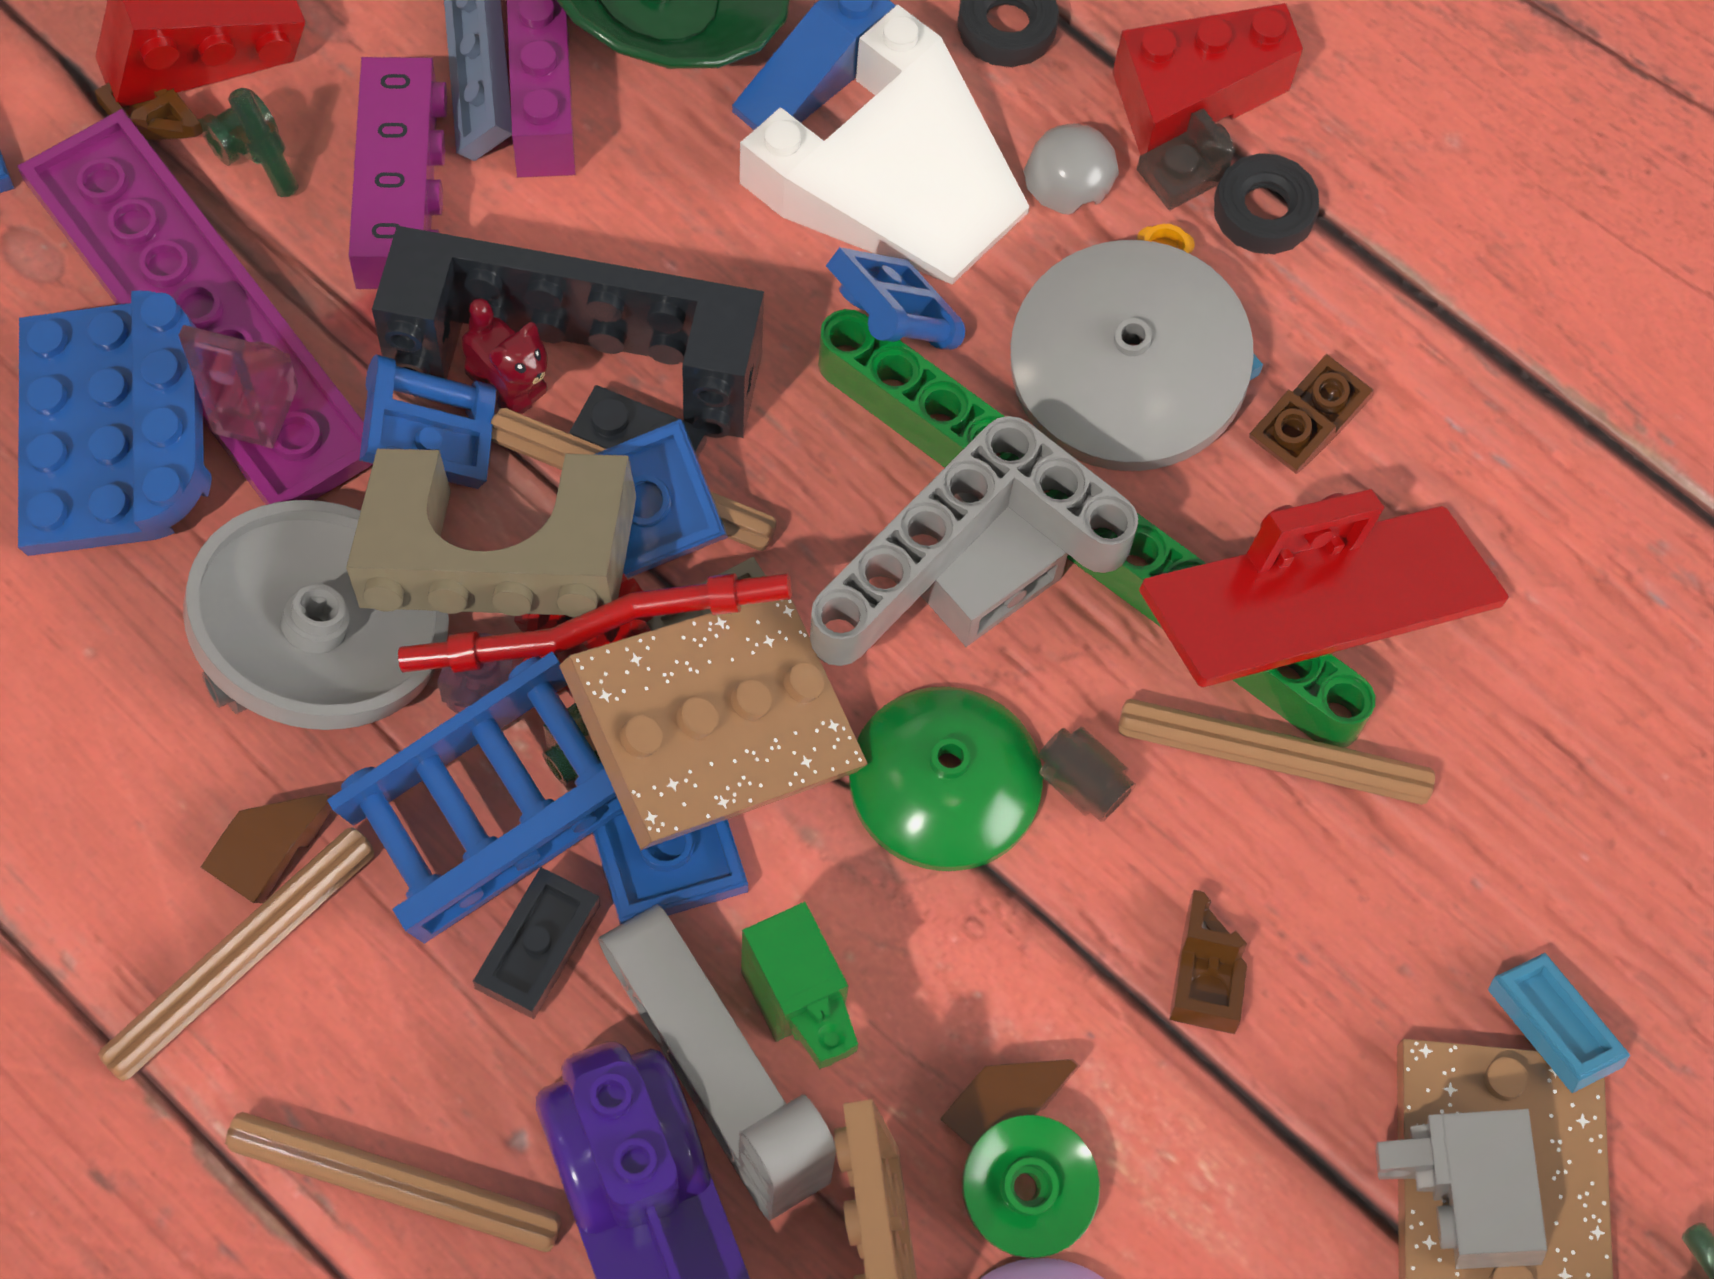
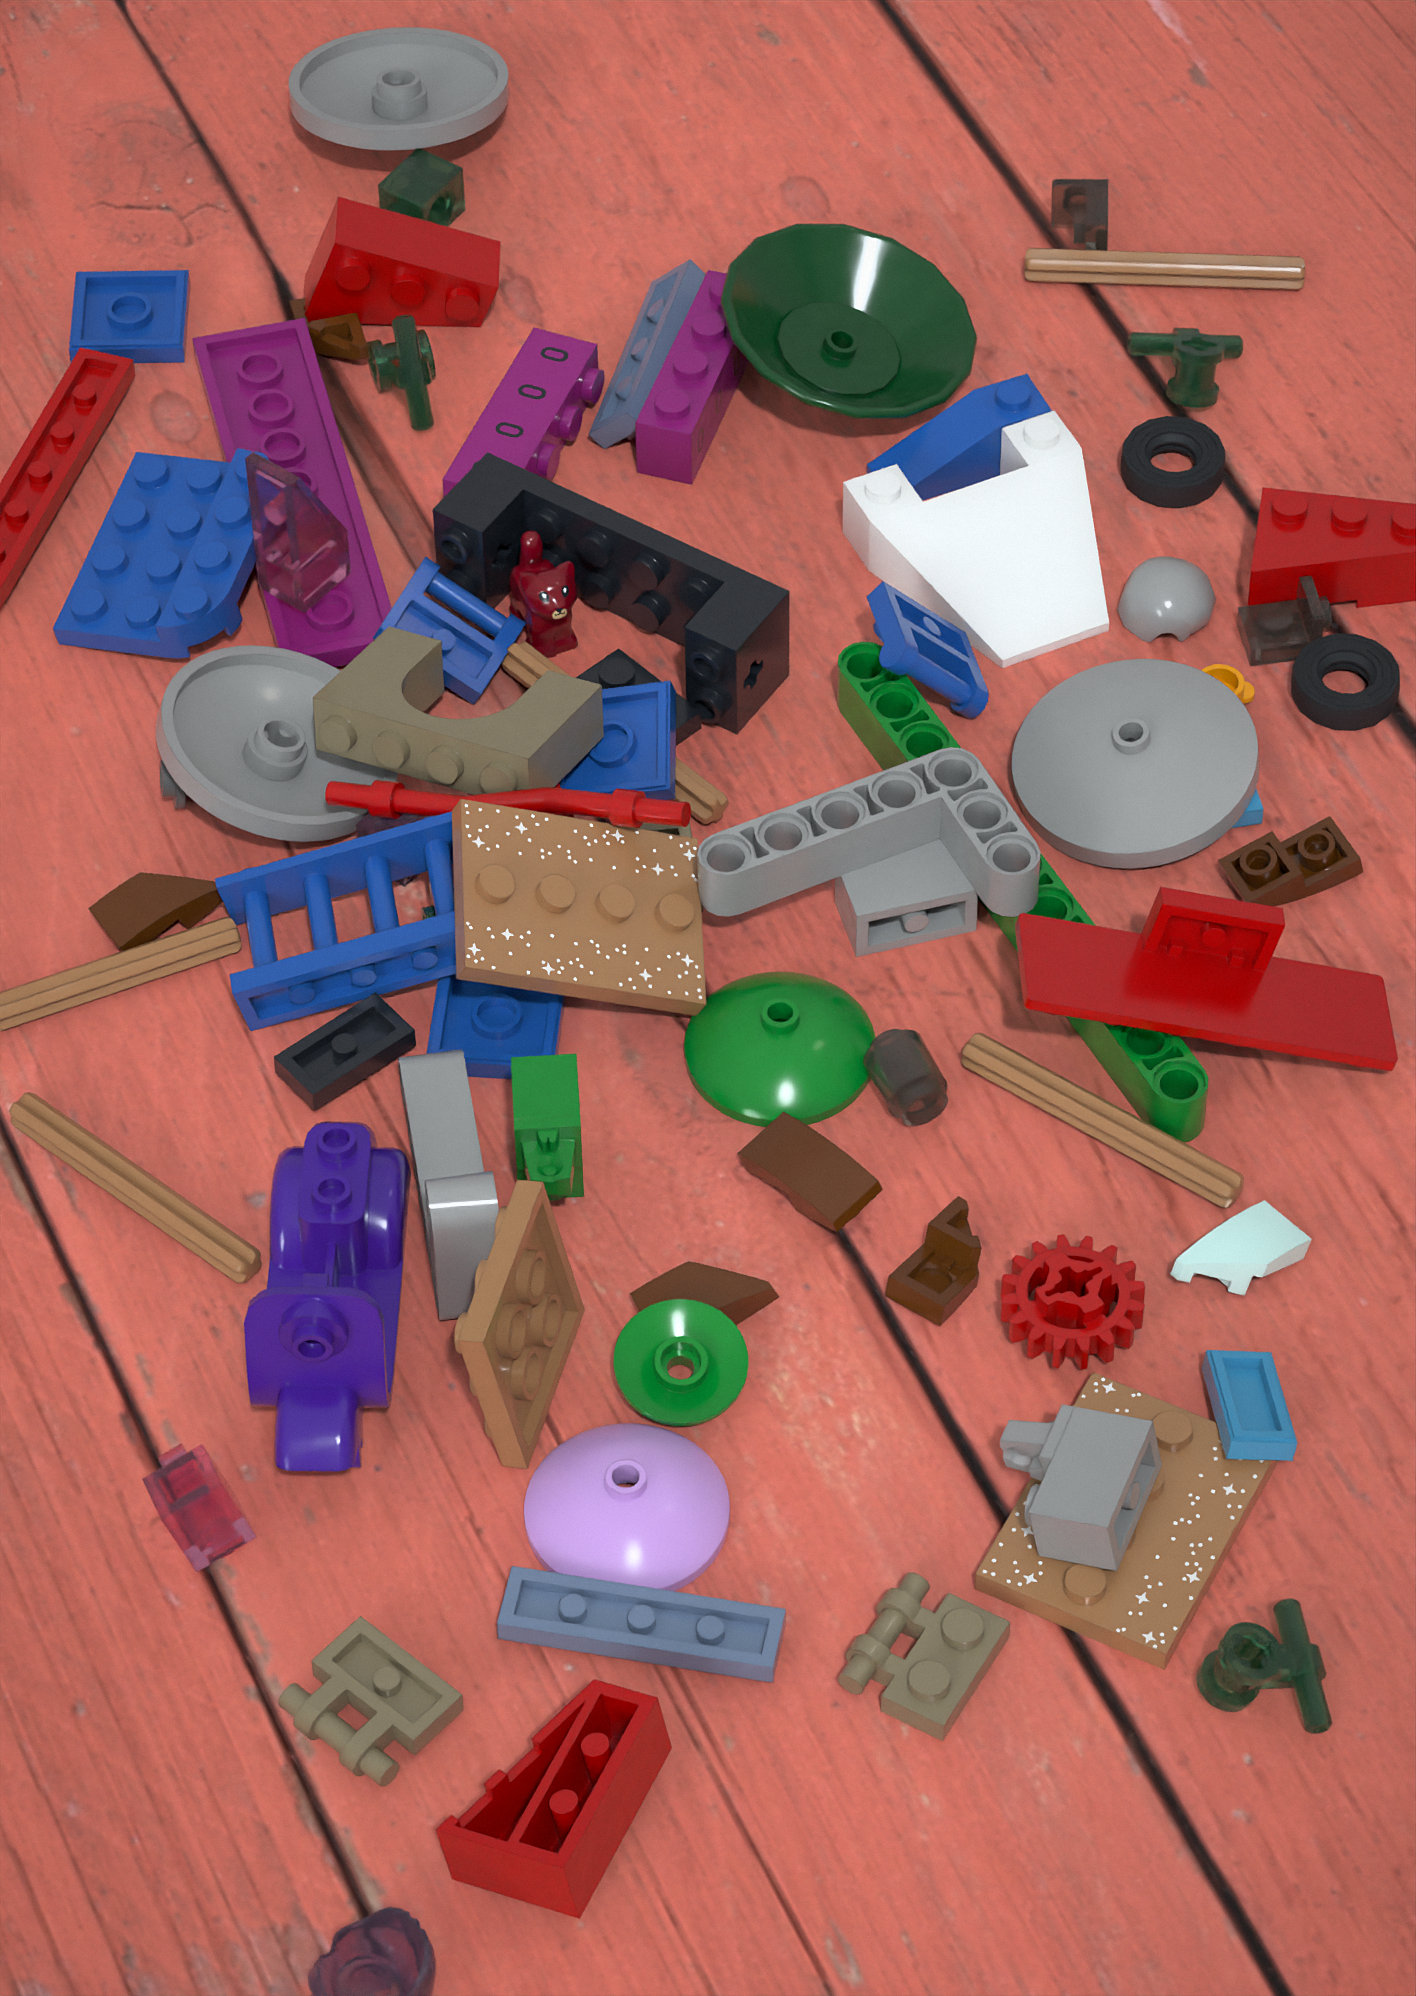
camera: 30 degrees right, 15 degrees down
(1047, 915) = (812, 1171): none -> reddish brown slope
(1327, 952) = (1072, 1301): none -> red gear
(1471, 847) = (1244, 1247): none -> light aqua slope

